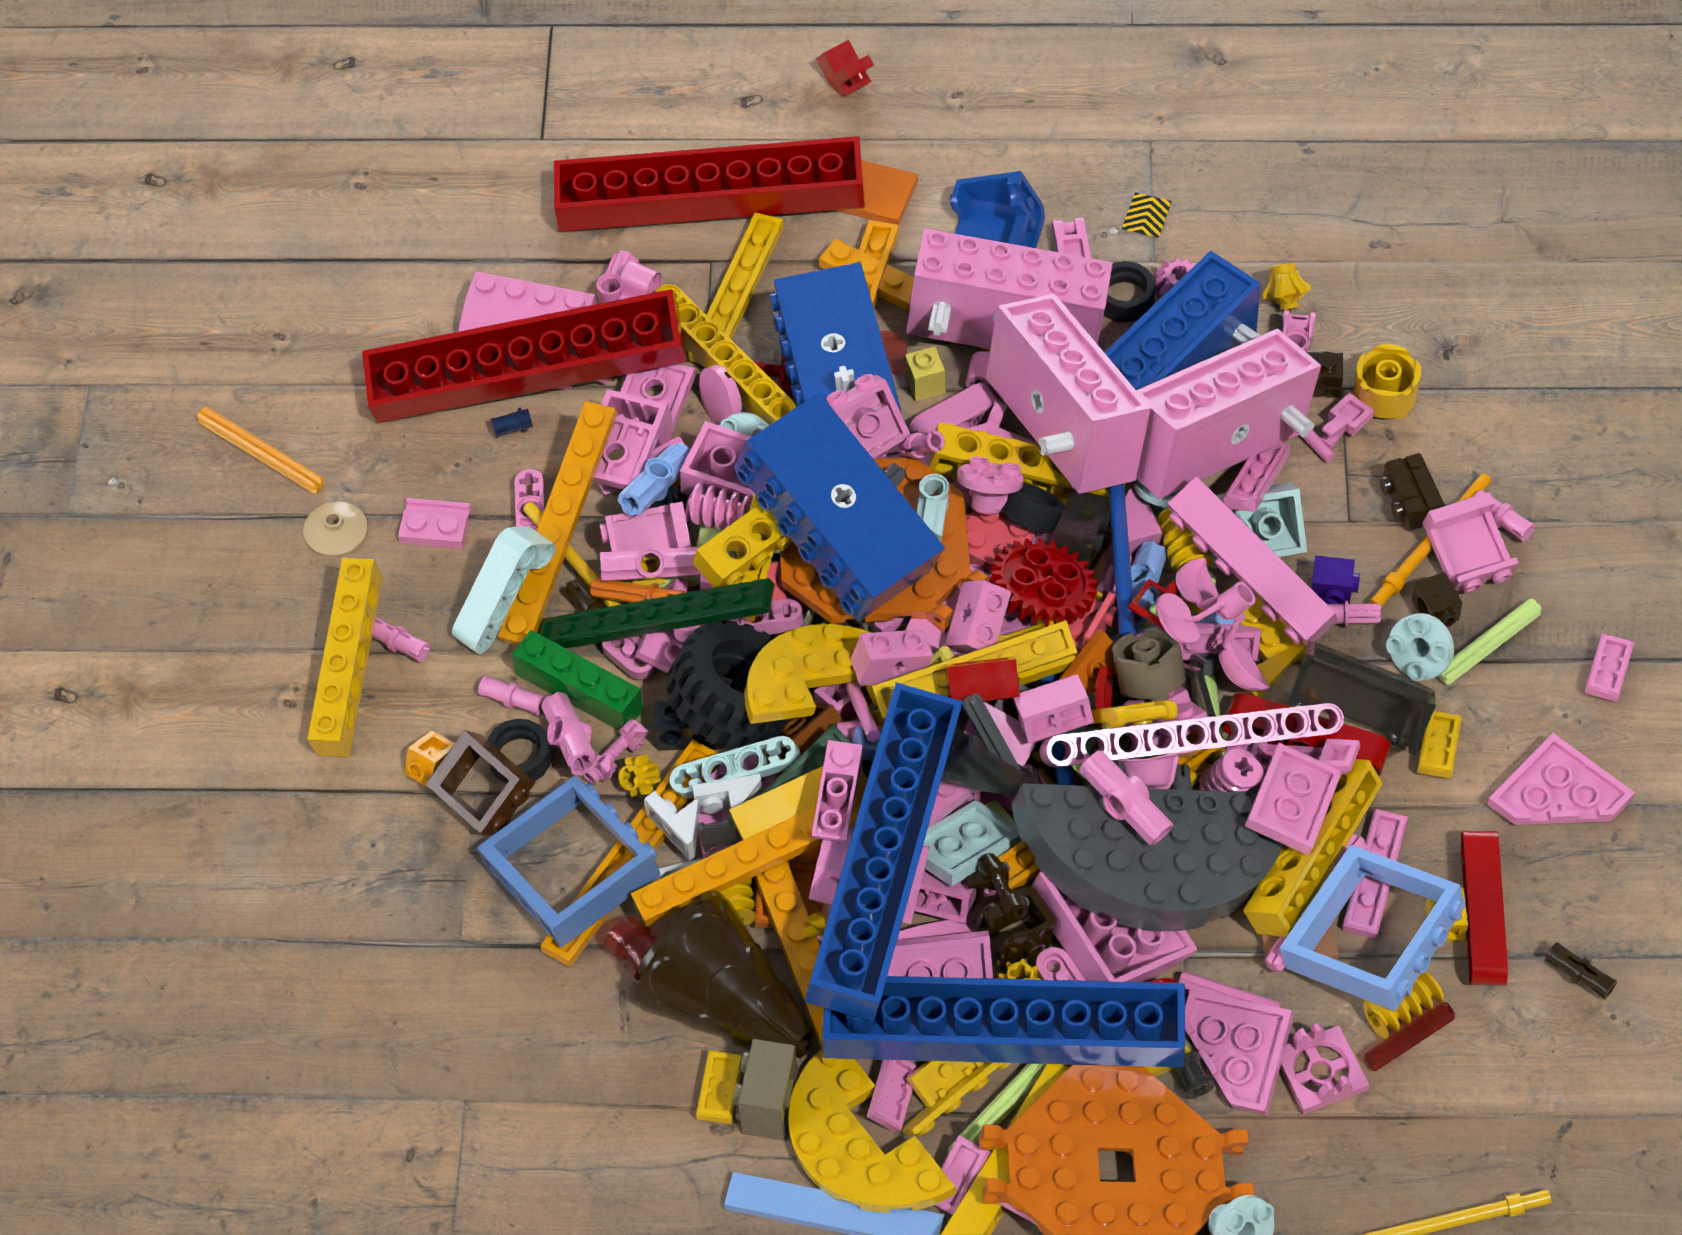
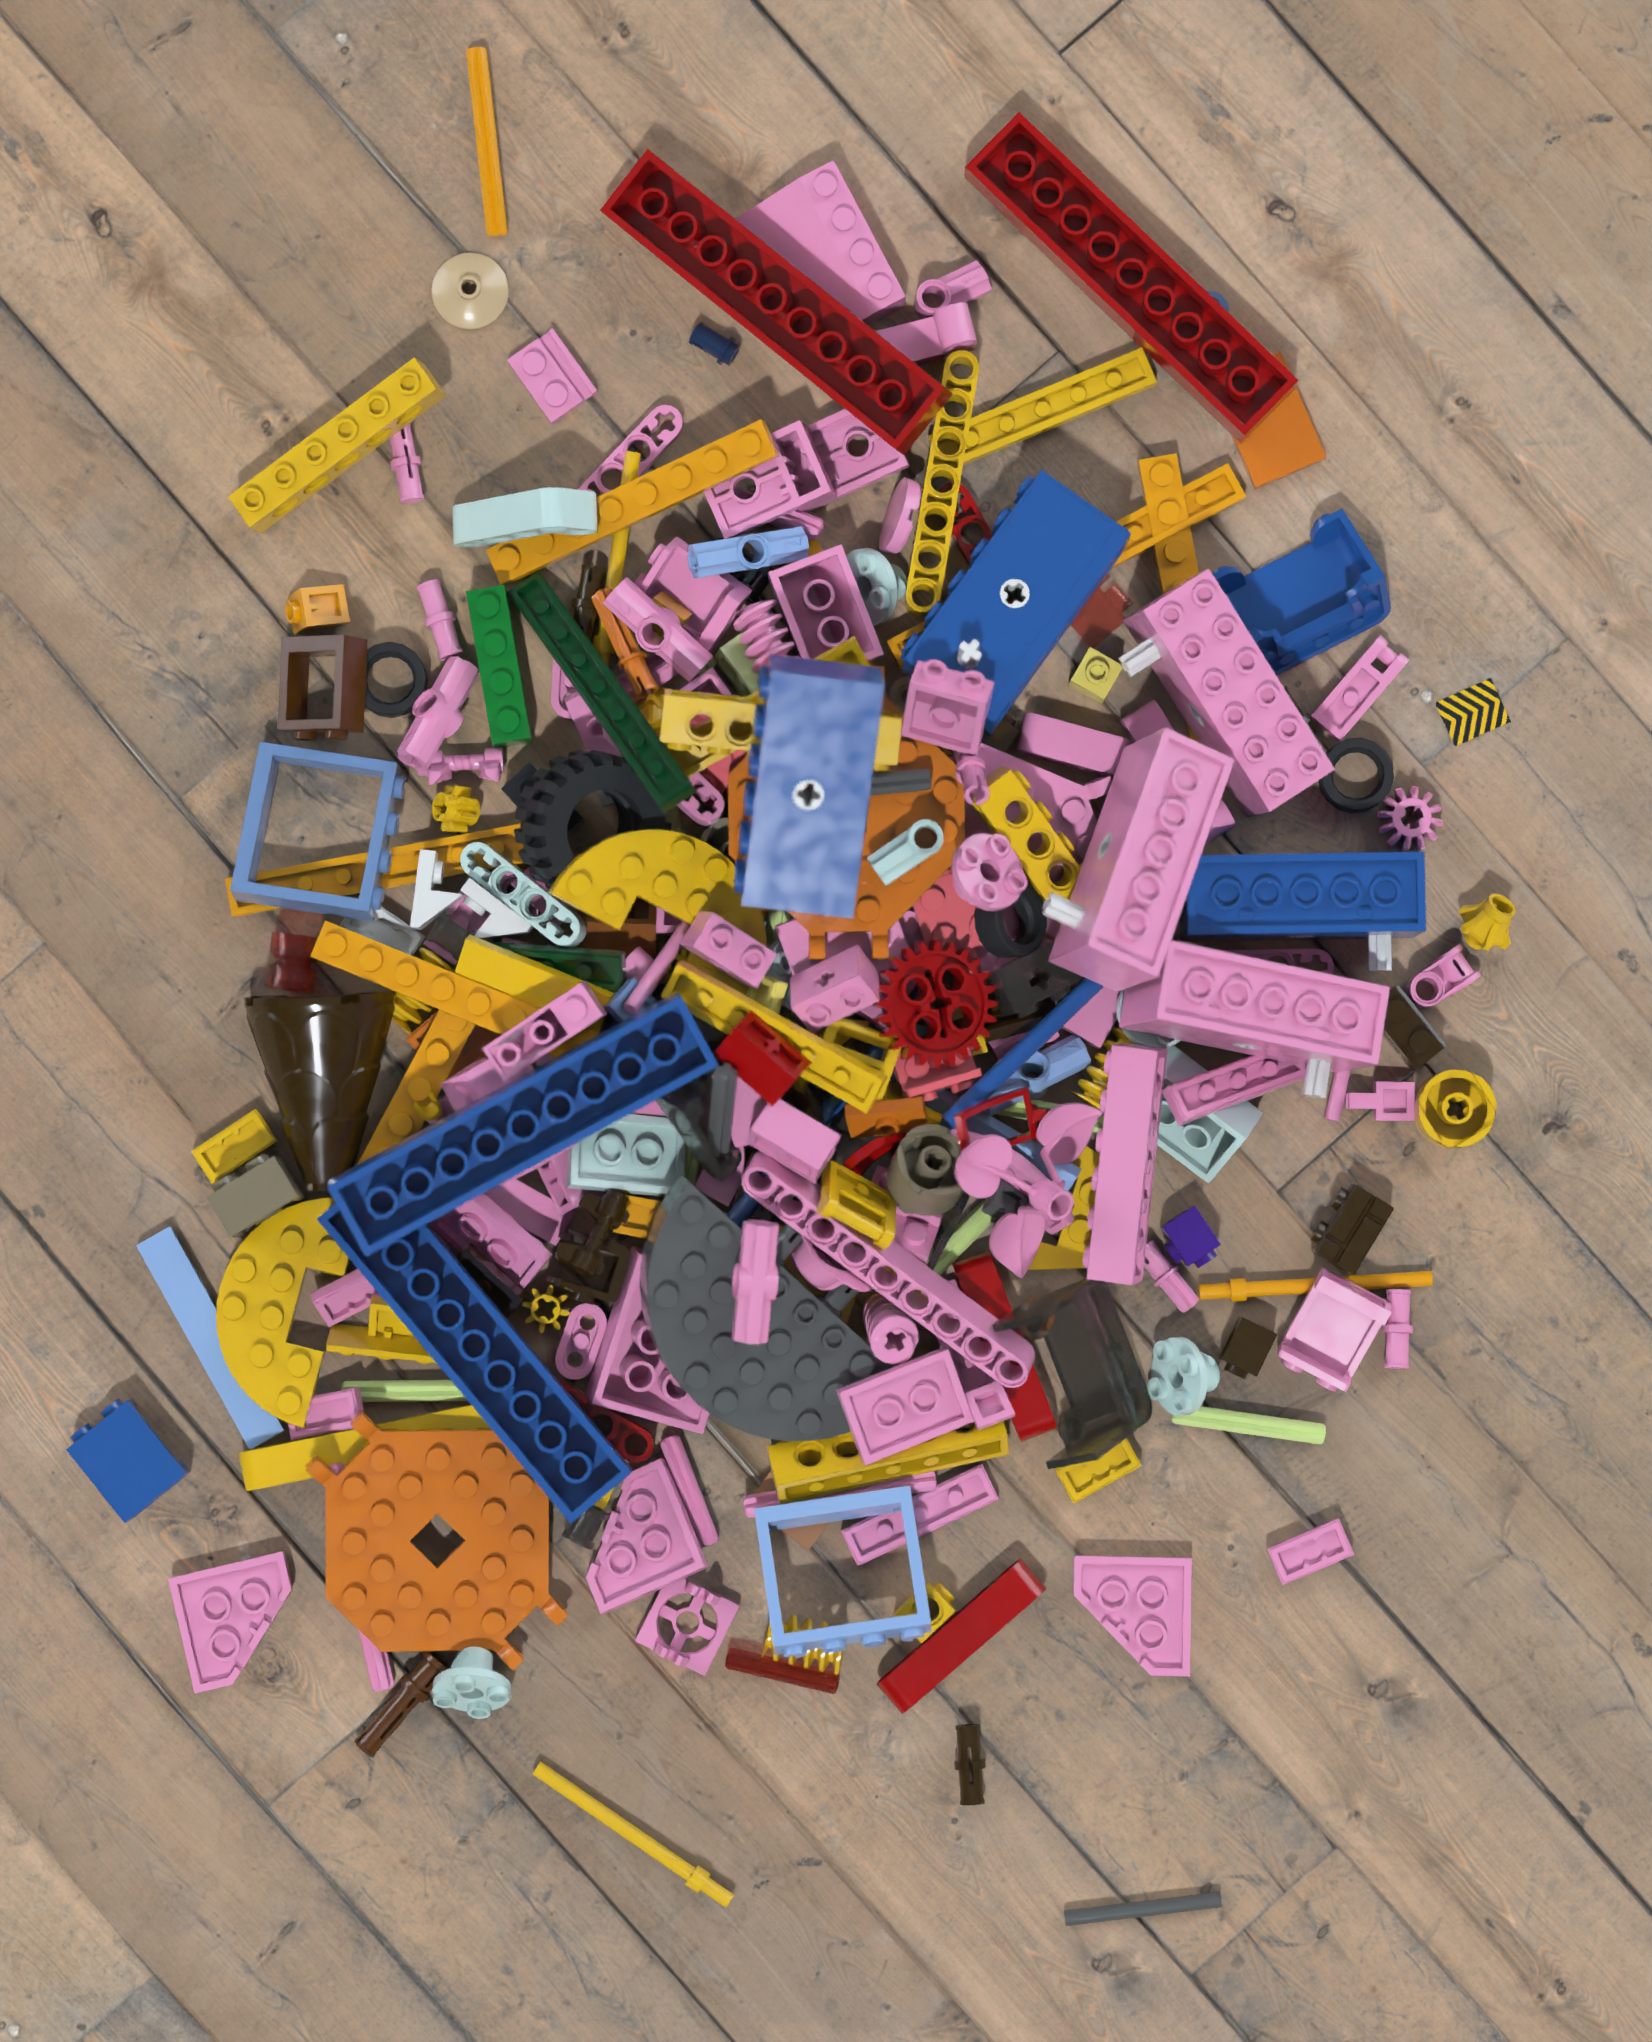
camera: 40 degrees right, 30 degrees up
(844, 68) = (1389, 273): red brick -> none

